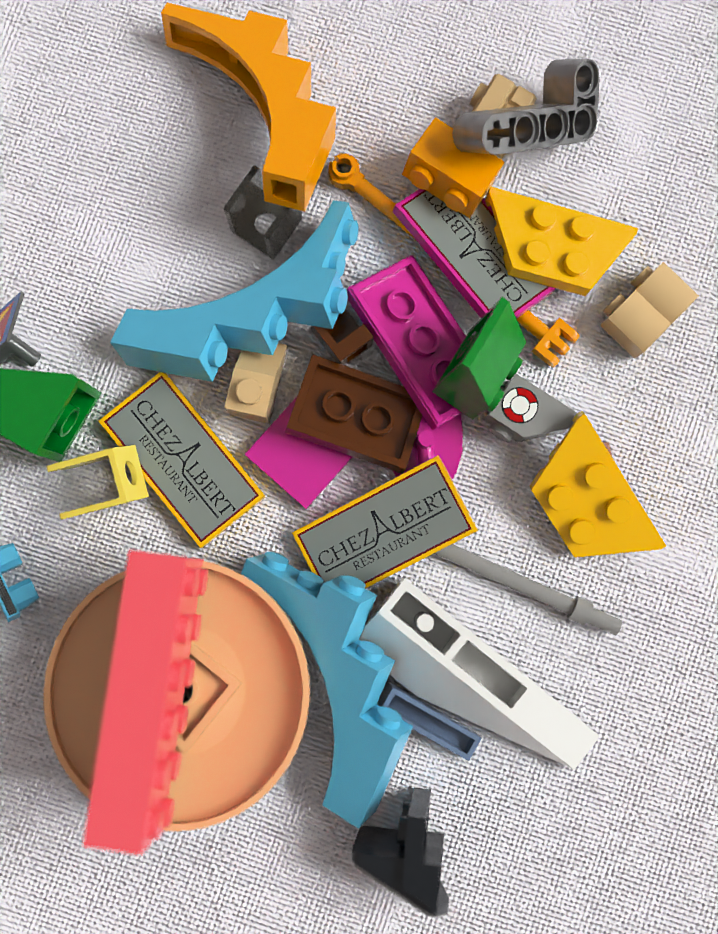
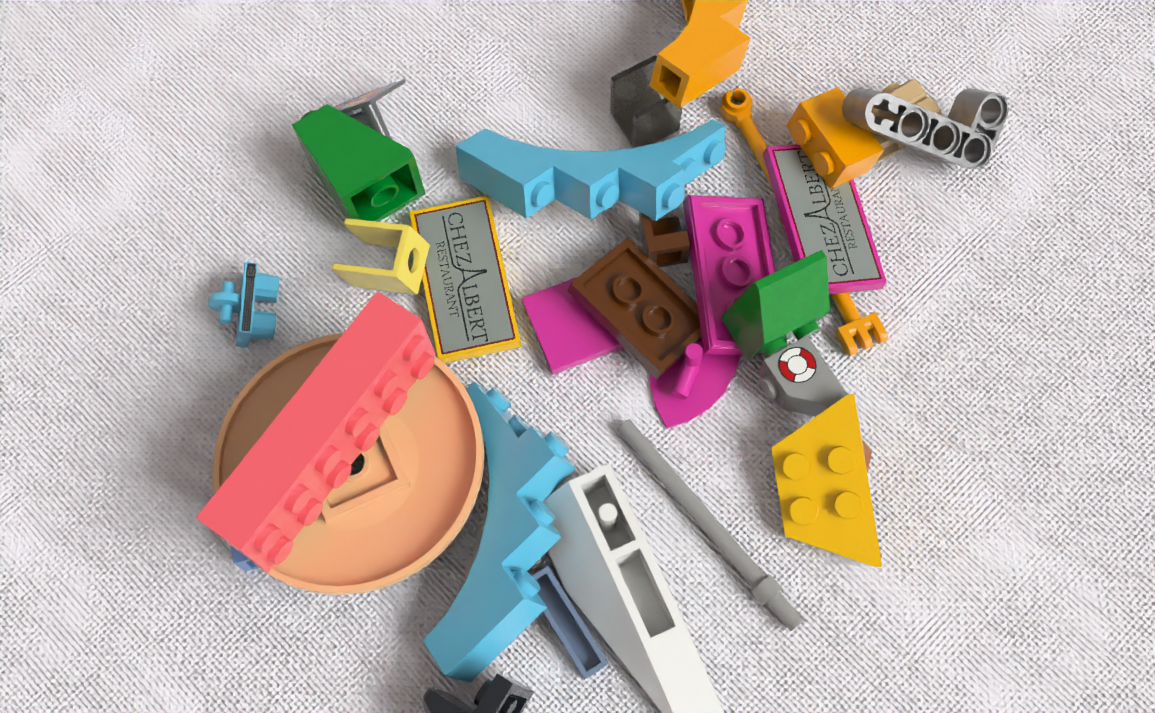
camera: 35 degrees right, 15 degrees down
(255, 384) = (563, 243): tan slope -> none
(388, 527) = (622, 418): light grey tile -> none
(555, 242) = (903, 244): yellow wing -> none
(649, 310) = (965, 341): tan brick -> none

